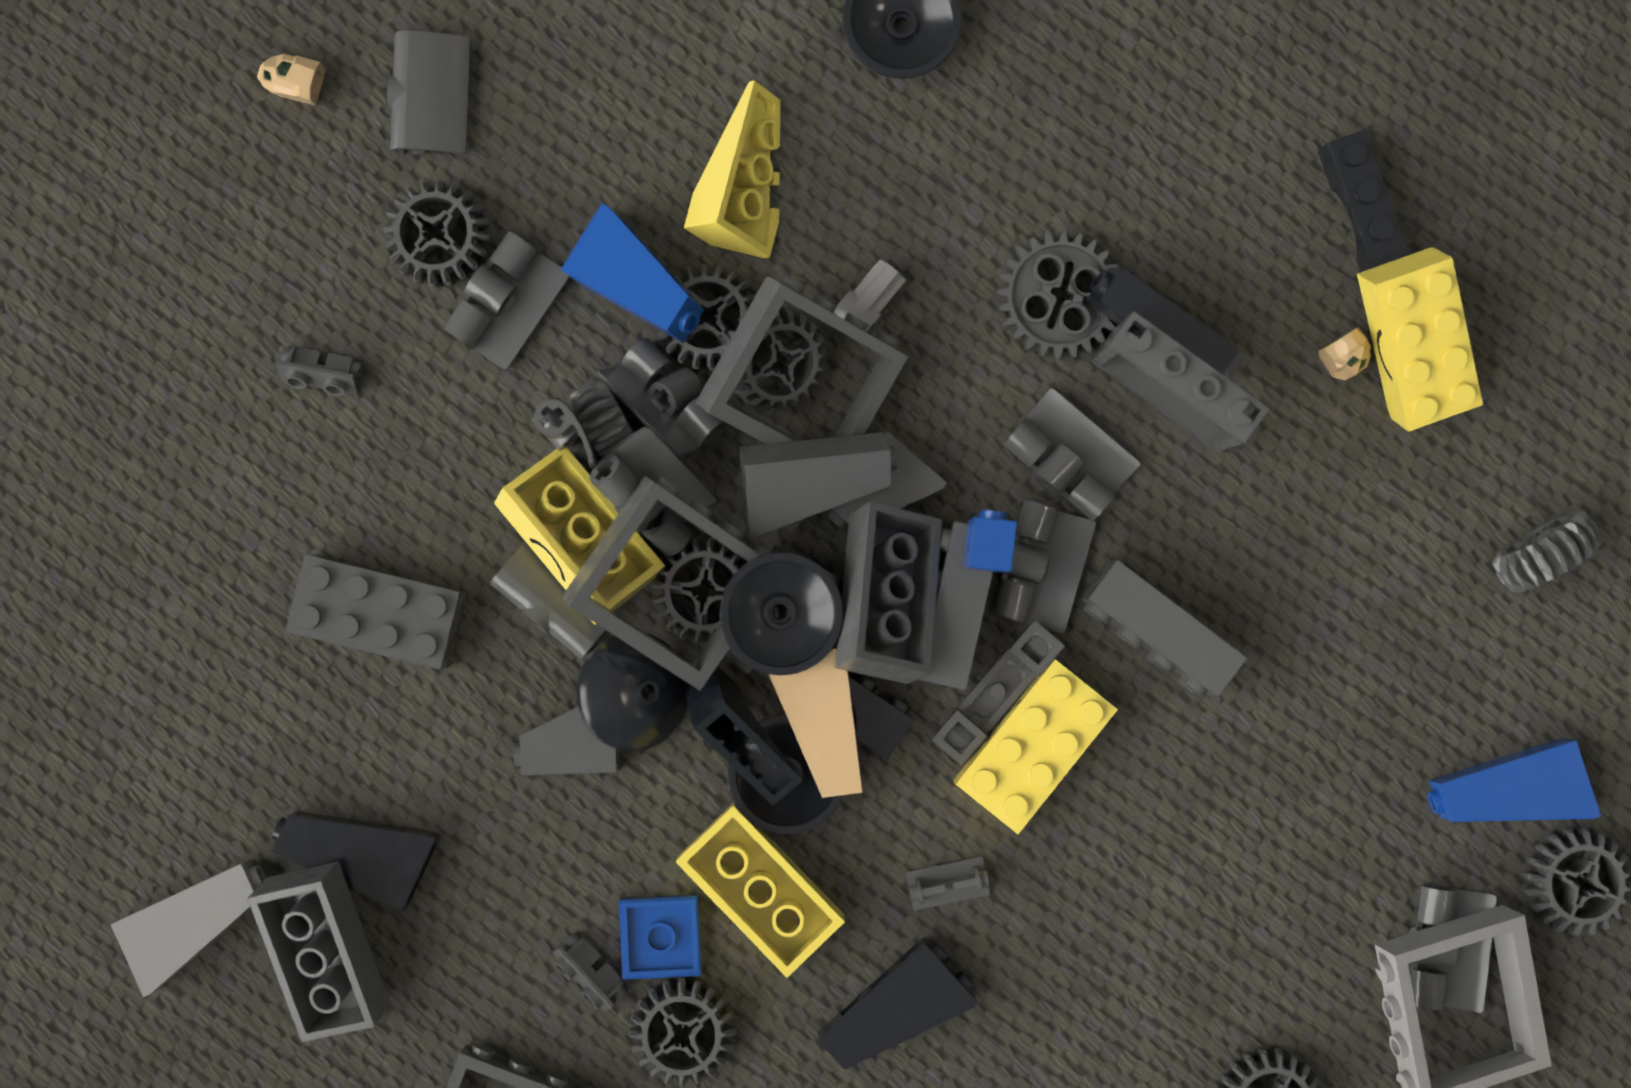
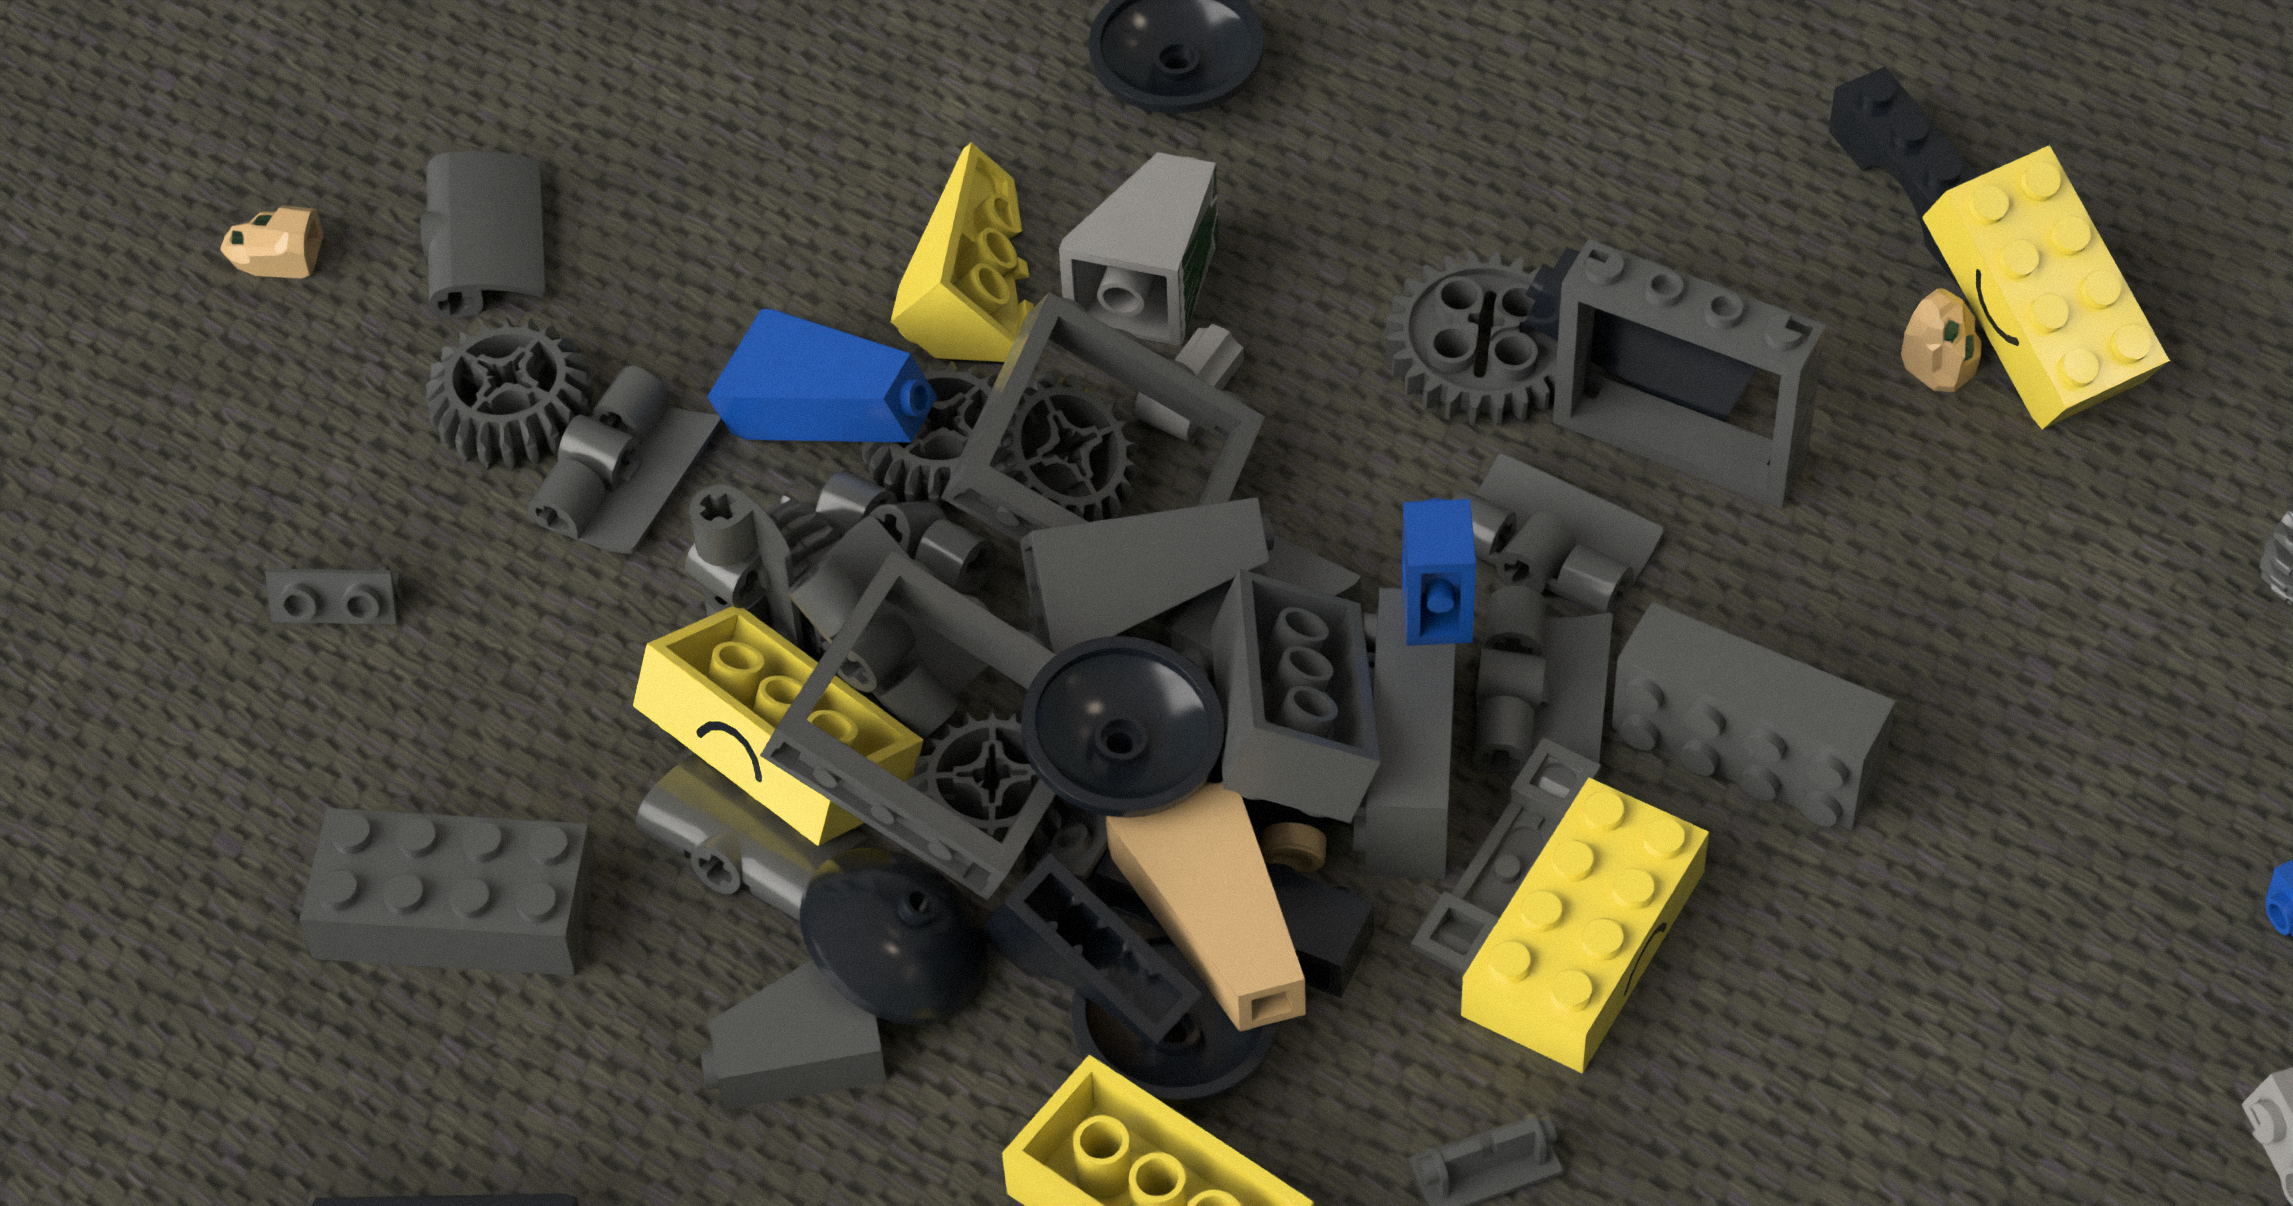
camera: 10 degrees left, 35 degrees down
(856, 199) = (1146, 249): none -> light grey slope

